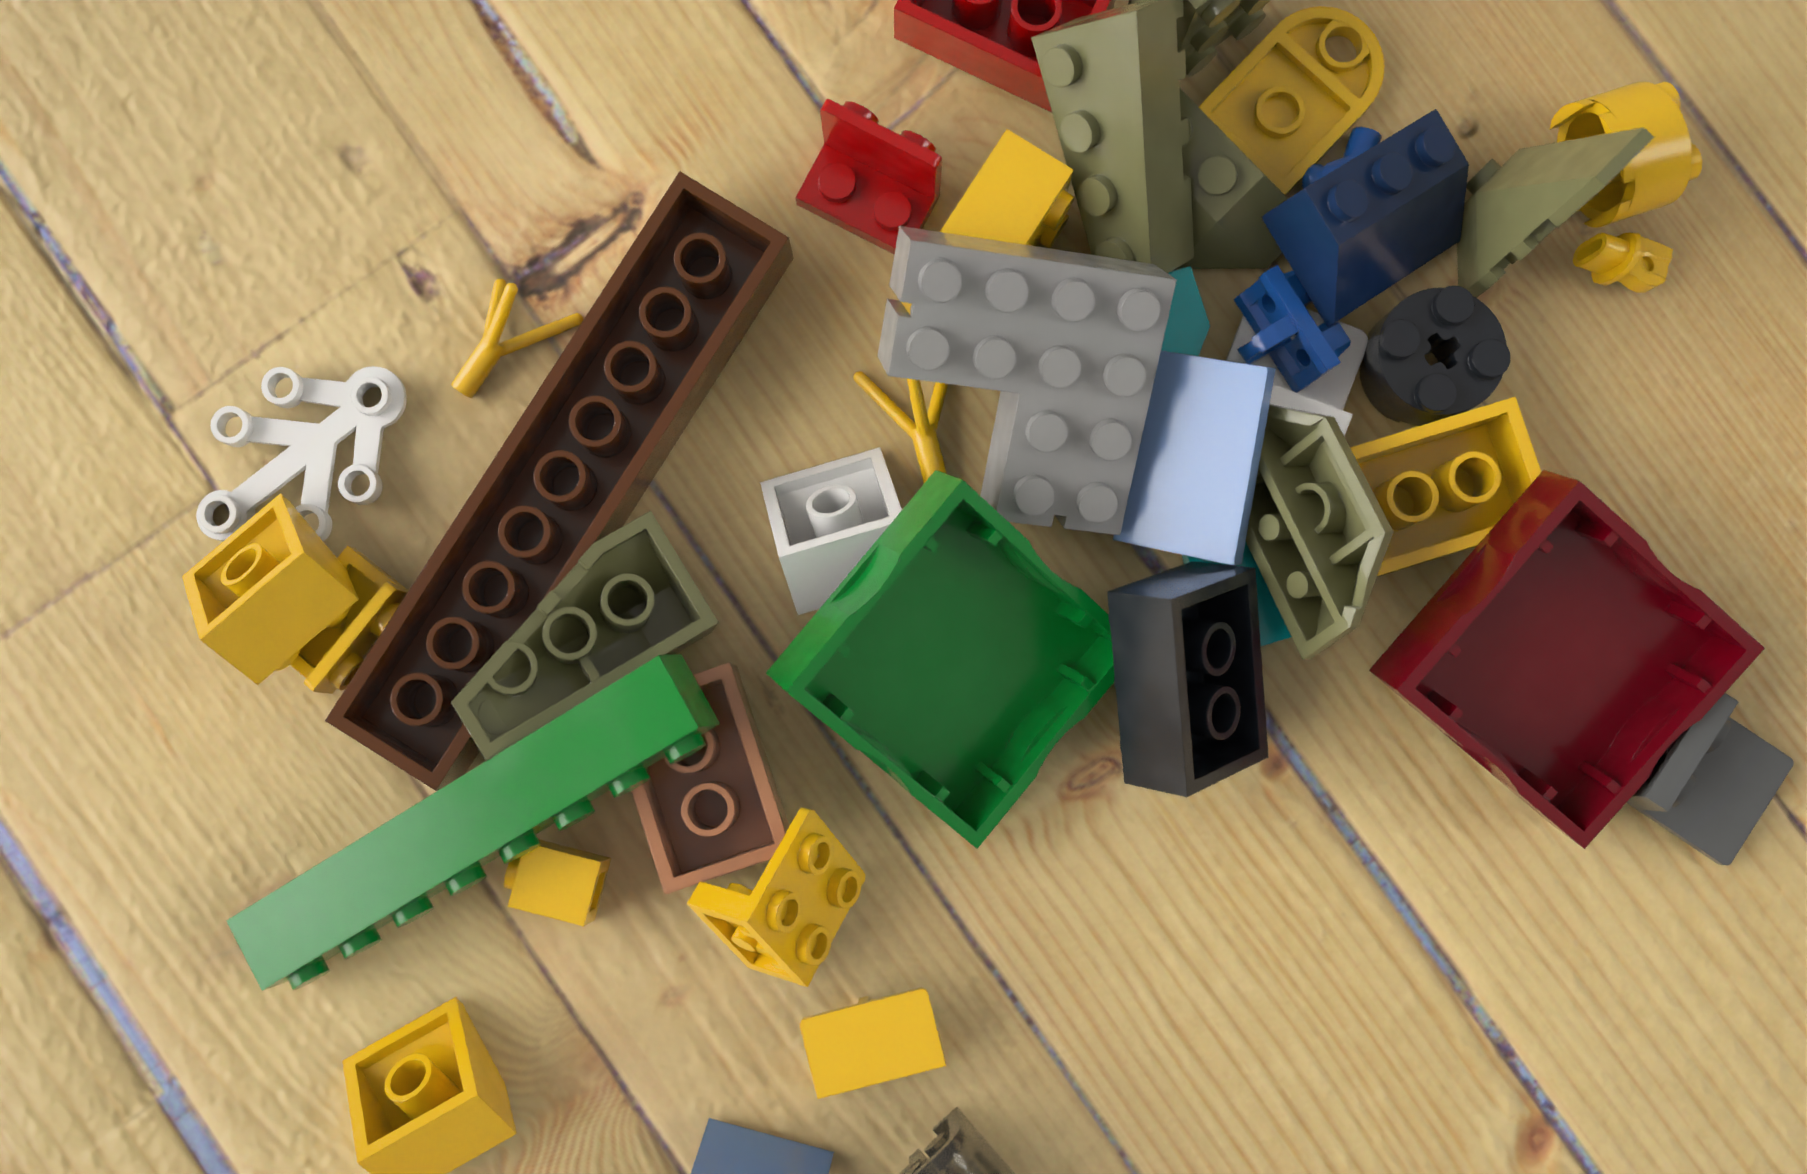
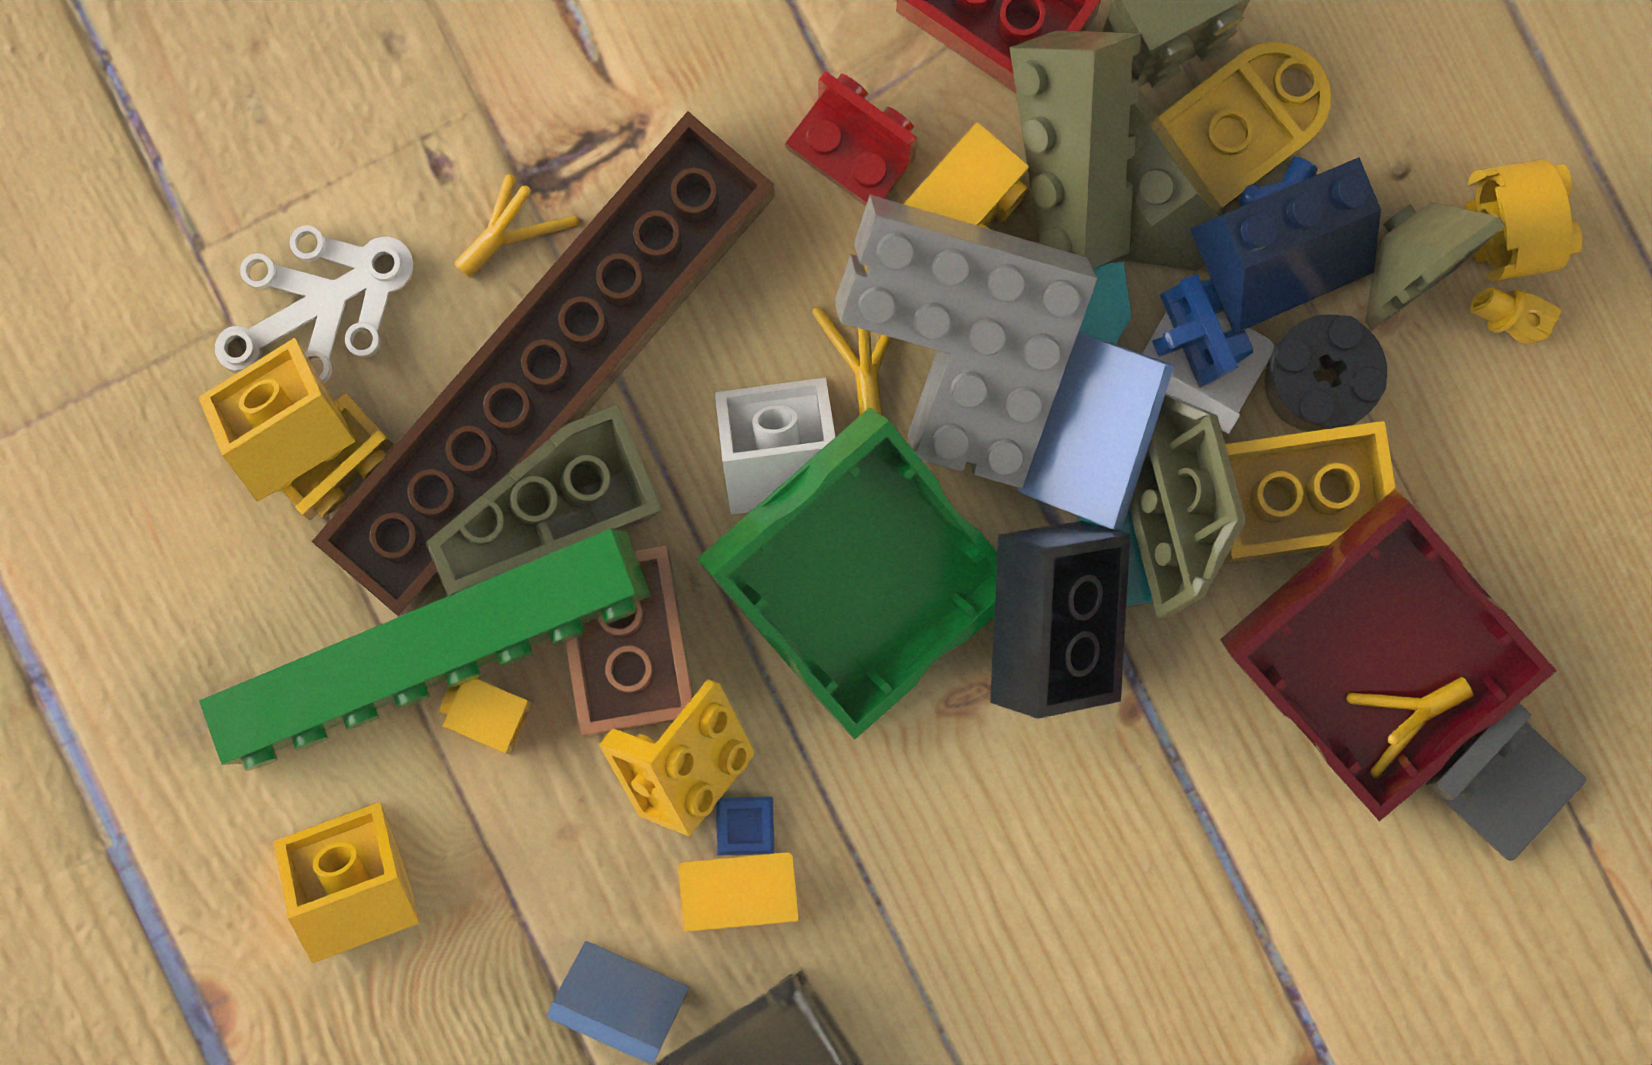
camera: 10 degrees right, 0 degrees up
(868, 960) = (745, 826): none -> blue tile
(1610, 712) = (1425, 709): none -> yellow plant

